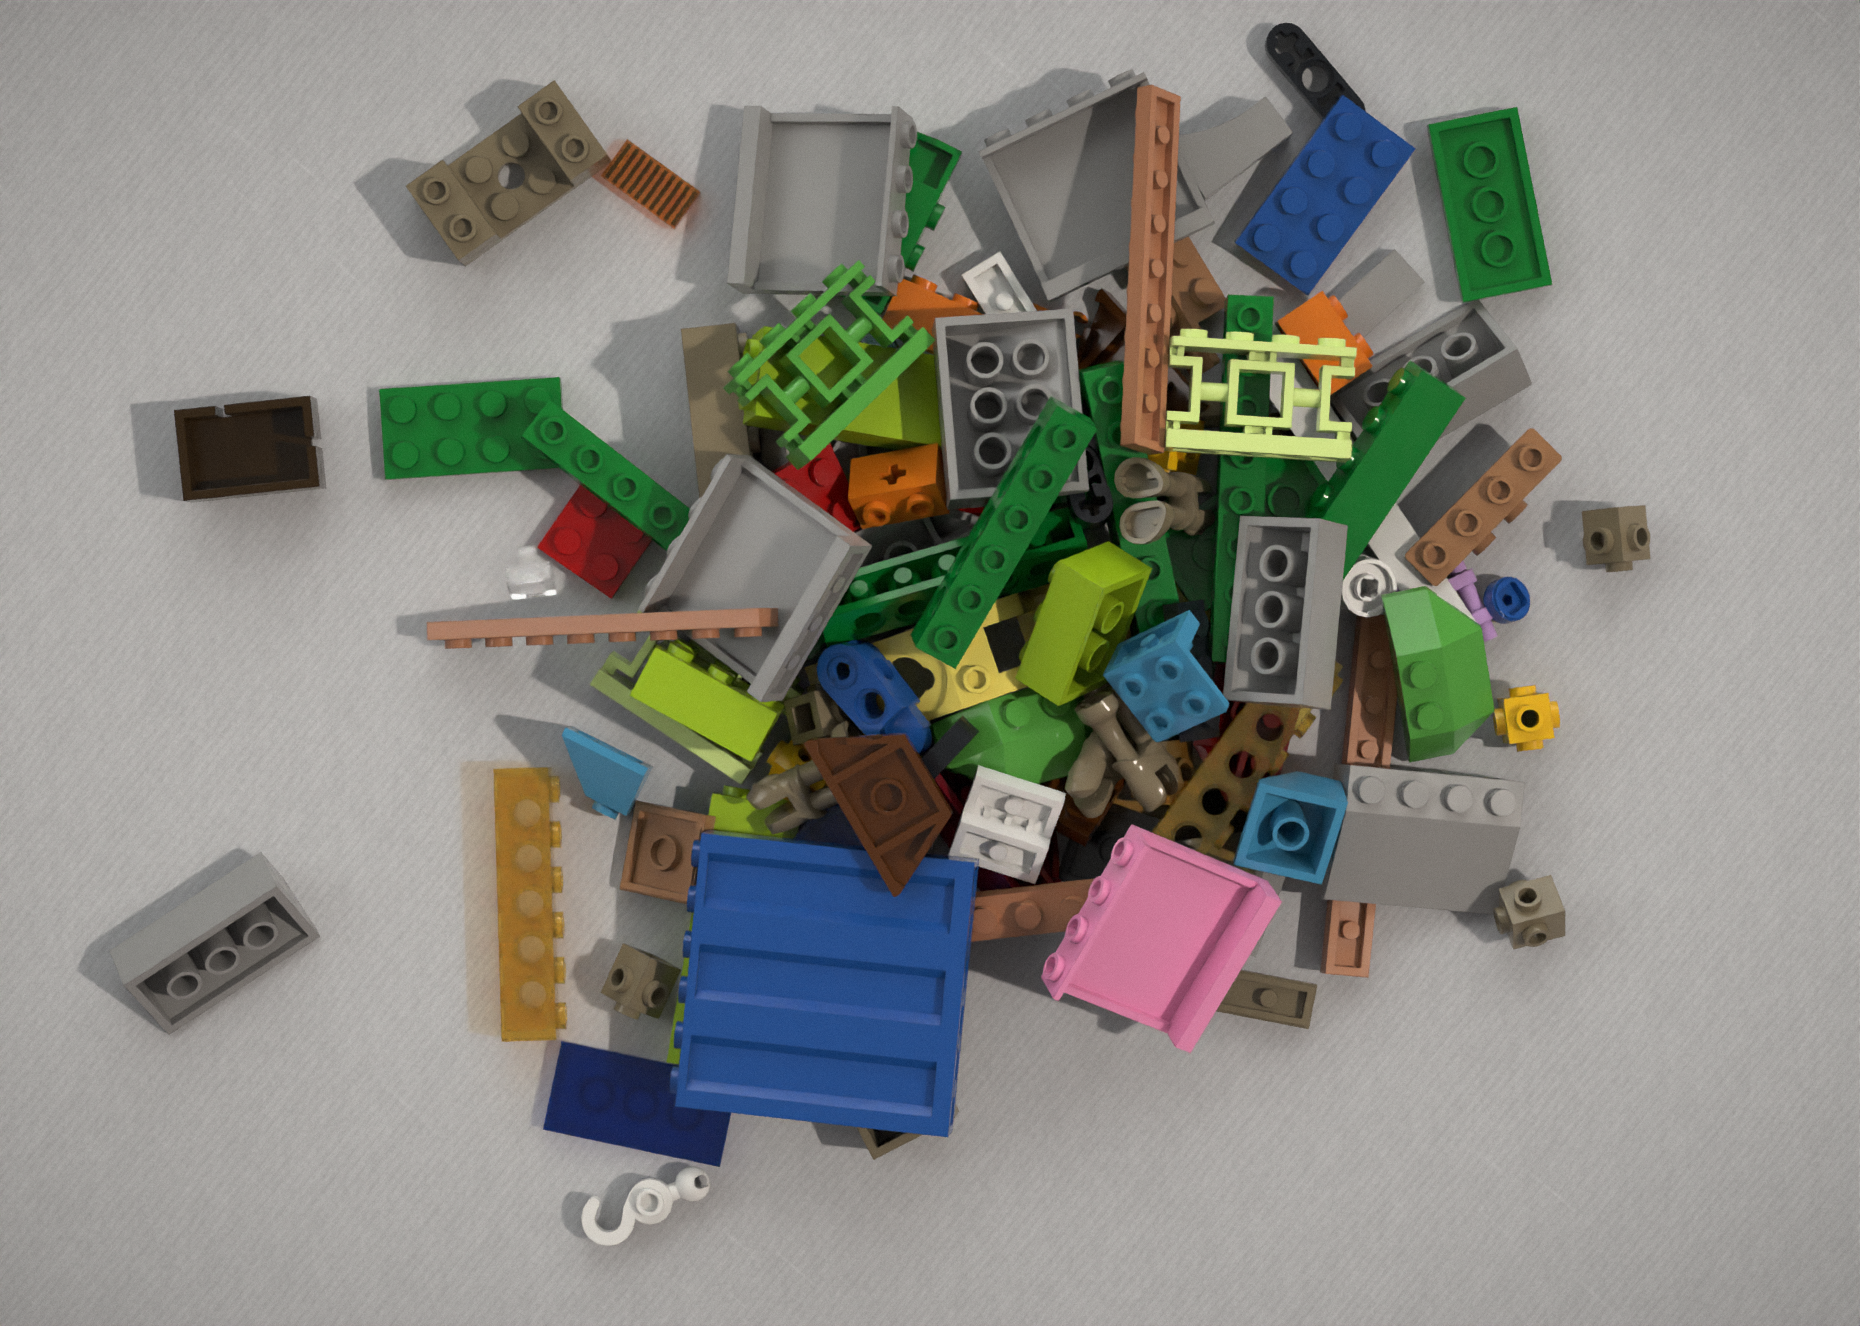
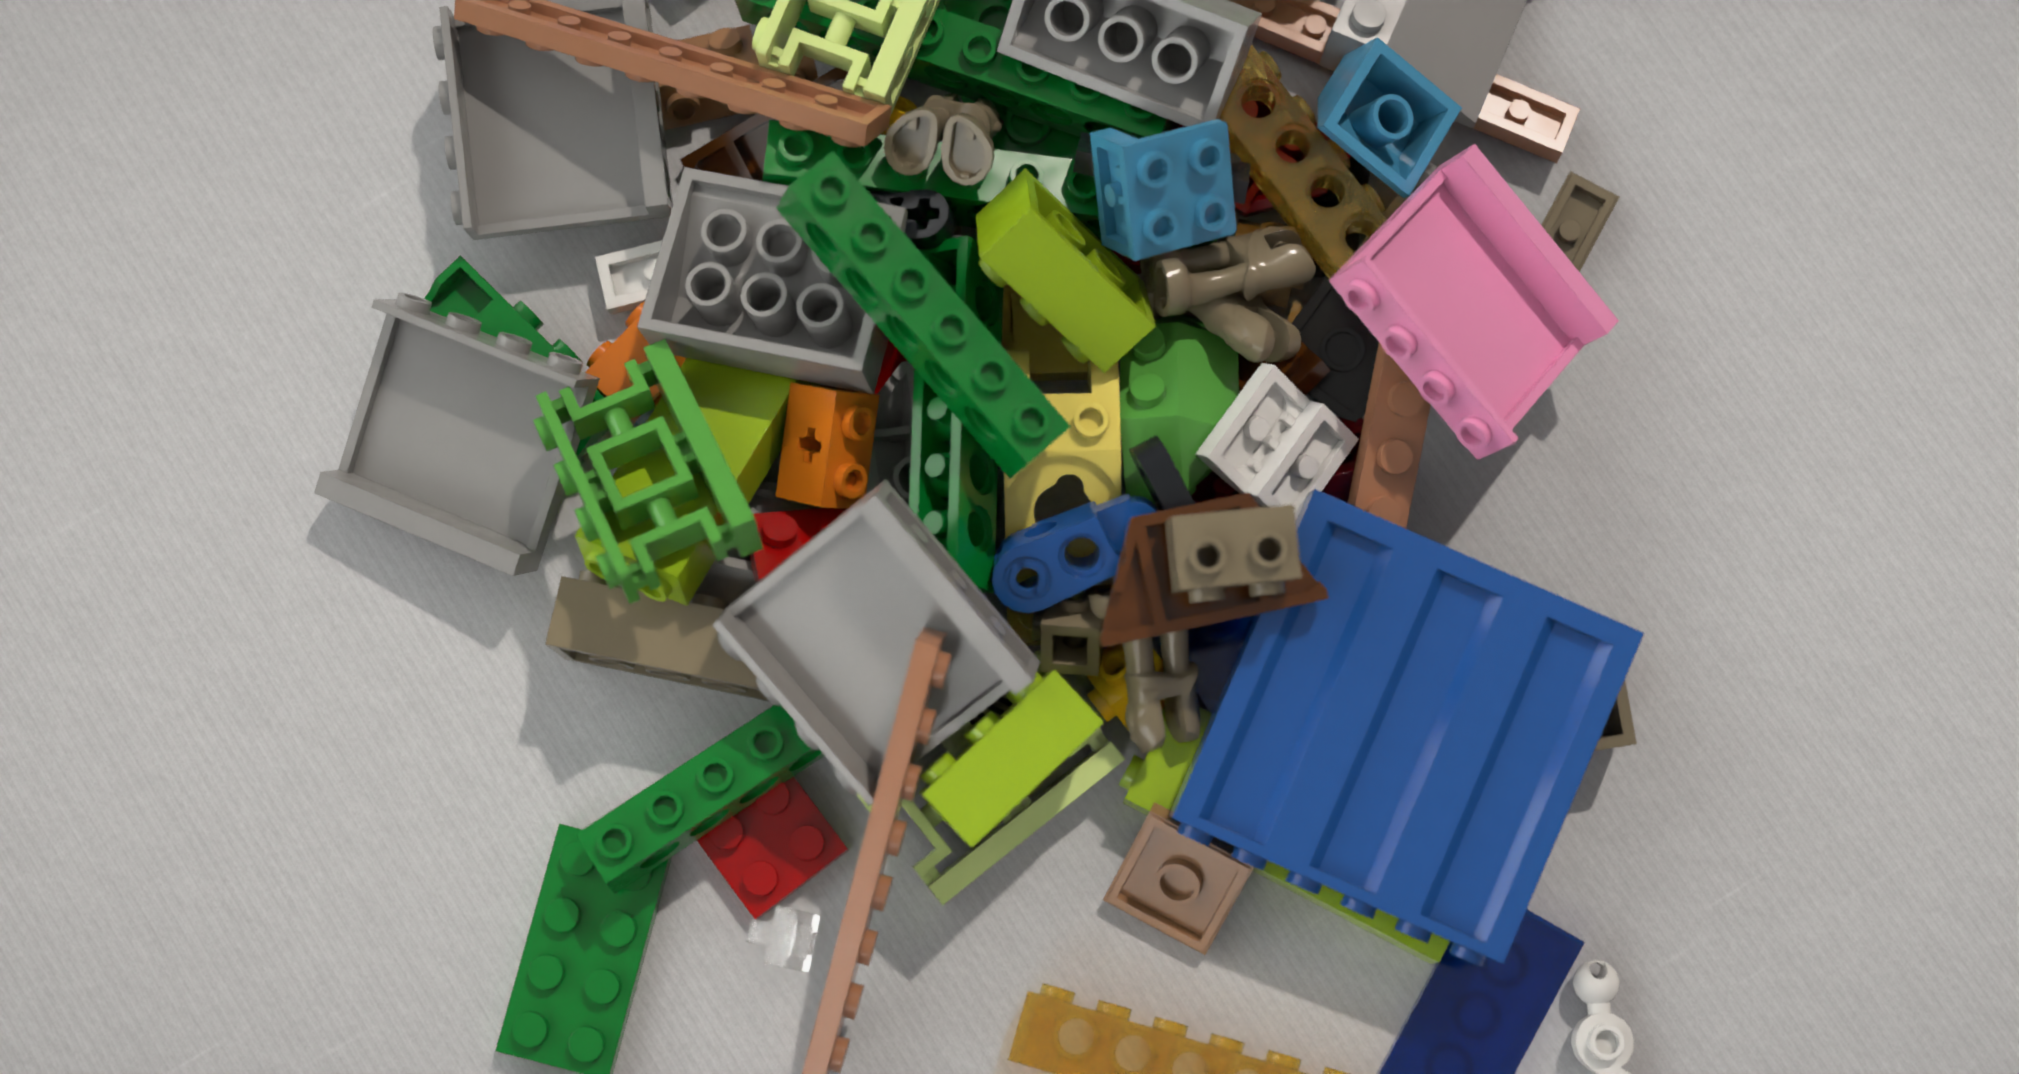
camera: 75 degrees left, 10 degrees down
(467, 196) = (281, 740): dark tan plate -> none
(606, 772) = (1059, 920): dark azure slope -> none
(640, 982) = (1329, 965): dark tan brick -> none
(651, 184) = (370, 640): clear orange tile -> none
(899, 816) = (1233, 551): none -> dark tan brick

